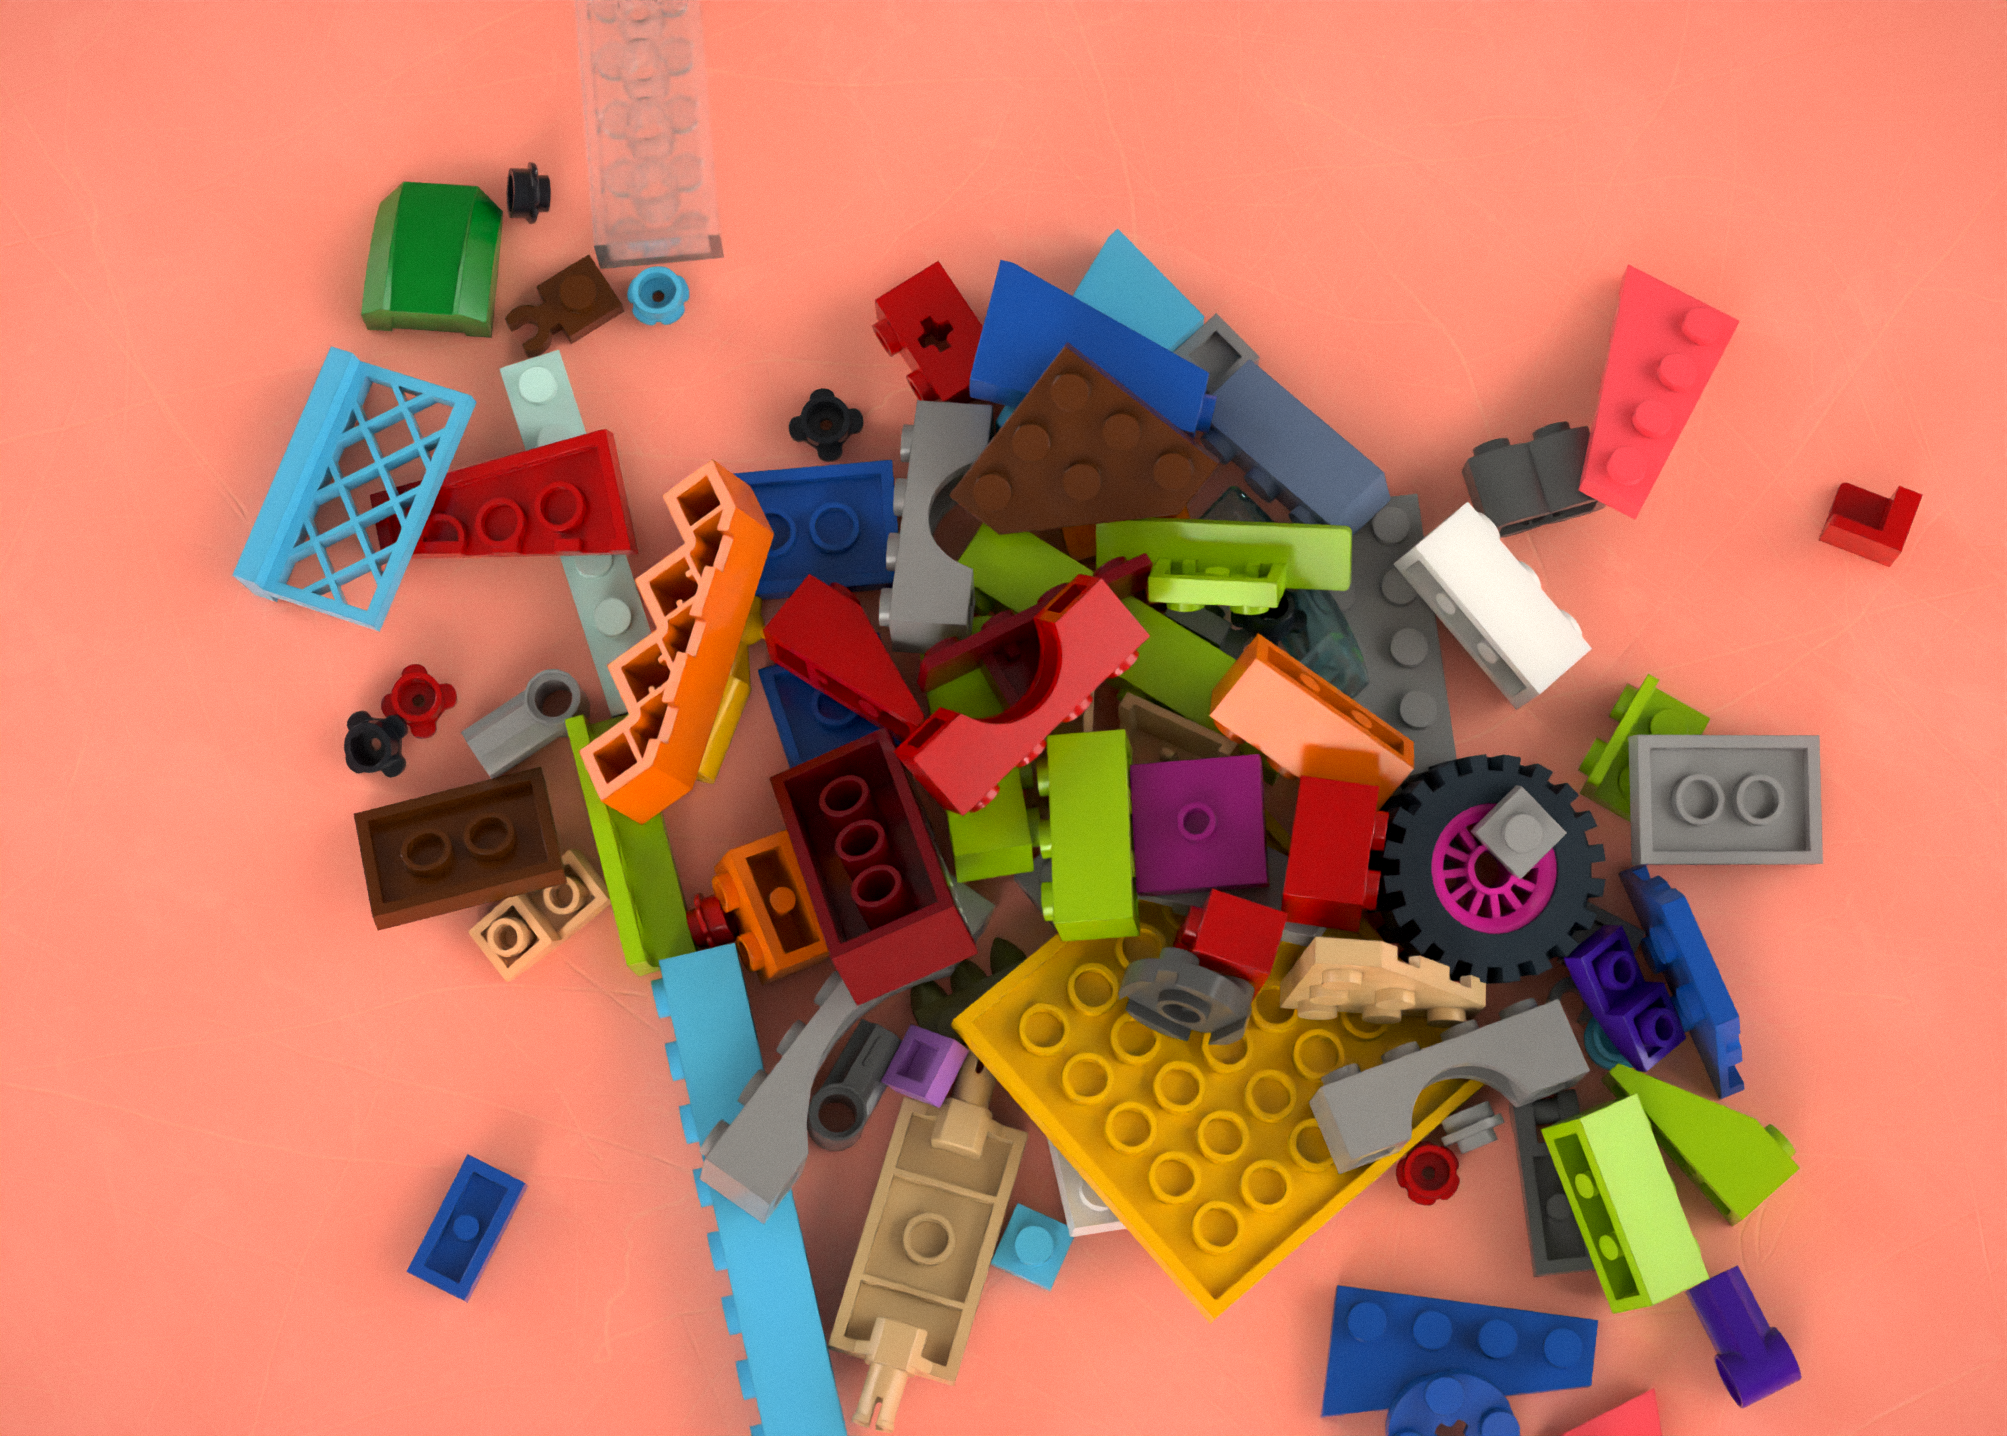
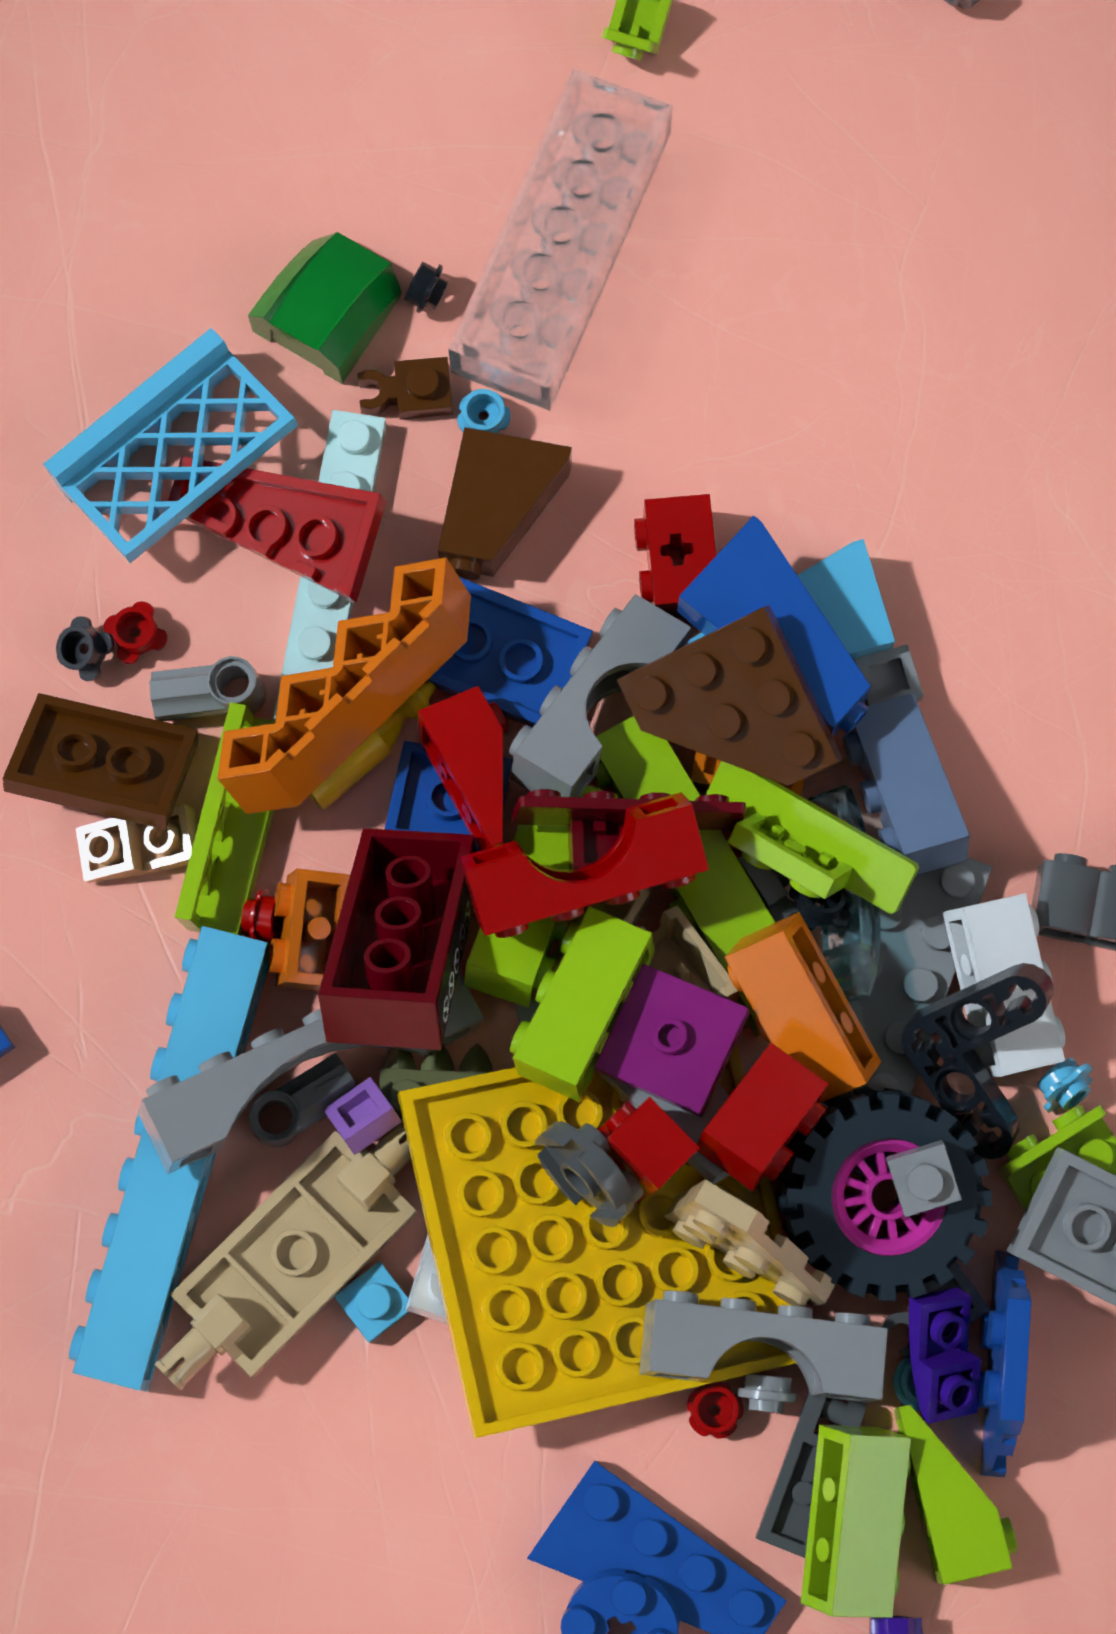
camera: 30 degrees right, 0 degrees up
(720, 372) = (497, 497): none -> reddish brown slope
(822, 407) = (563, 563): black plate -> none
(1479, 679) = (961, 1038): none -> black beam
(1603, 673) = (1065, 1085): none -> medium azure plate

